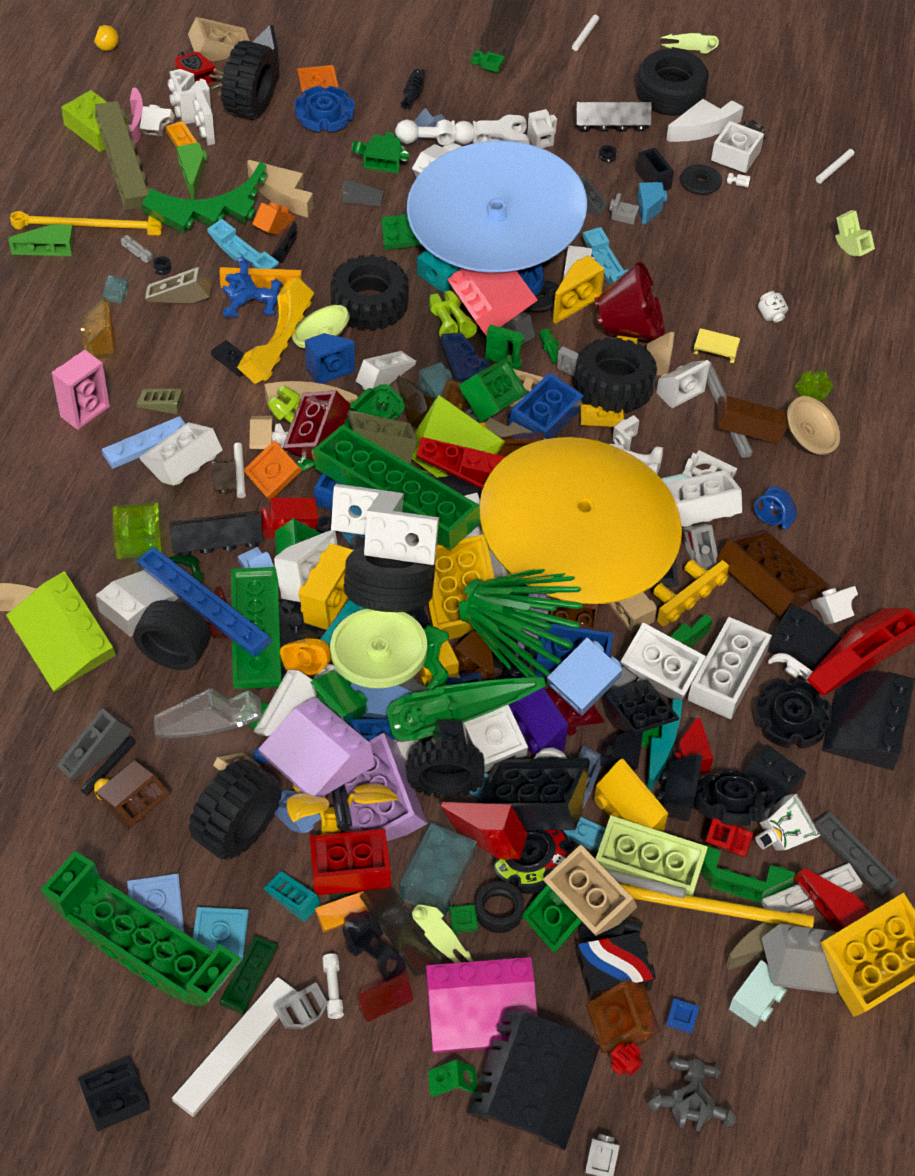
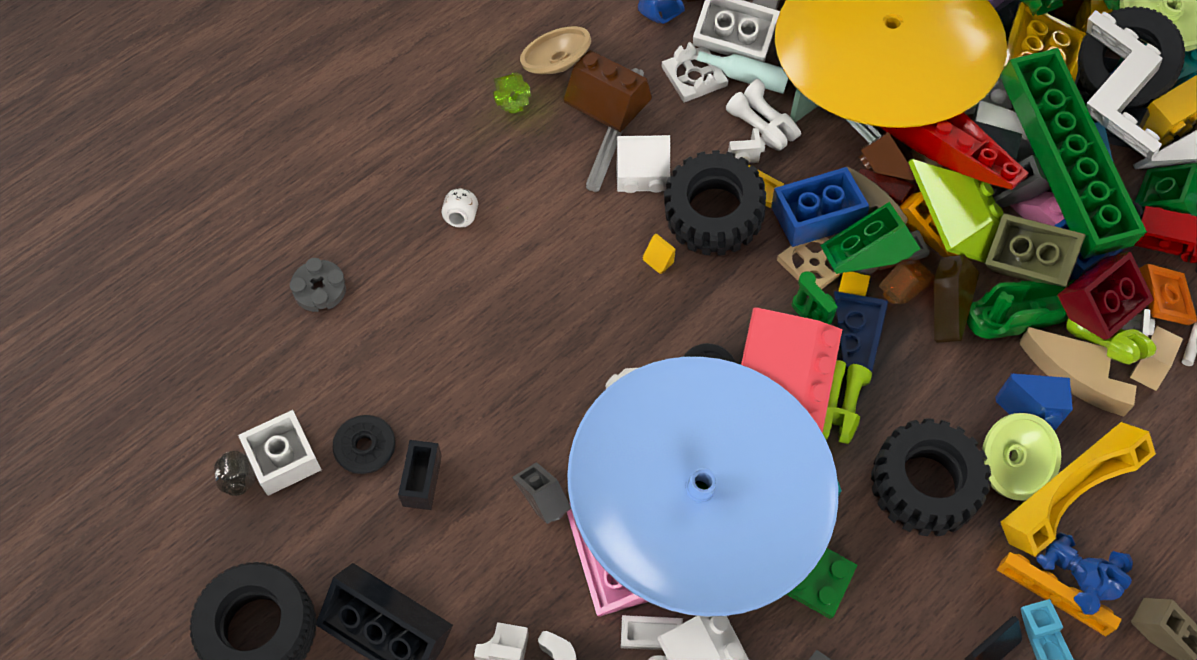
camera: 145 degrees left, 10 degrees up
(228, 356) = (1146, 493): black plate -> none
(383, 369) = (964, 363): white slope -> none
(434, 379) = (916, 312): clear light blue slope -> none
(550, 345) = (746, 297): green axle -> none
(567, 361) = (745, 259): light grey bracket -> none
(578, 288) = (671, 335): yellow slope -> none
(603, 255) = (591, 367): medium azure slope -> none
(607, 153) = (446, 553): black bush -> none
(623, 211) = (505, 447): light grey bracket -> none
(630, 307) = (637, 266): dark red cone -> none
(650, 200) = (463, 436): dark azure slope -> none
(661, 351) = (643, 207): tan slope -> none
(703, 121) = (272, 534): white slope -> none
(717, 344) = (565, 196): light yellow hinge -> none
(741, 180) = (319, 413): white piece -> none
(801, 235) = (312, 272): none -> dark grey plate
(834, 166) = (182, 370): white bar -> none
(851, 237) = (281, 243): yellowish green brick -> none

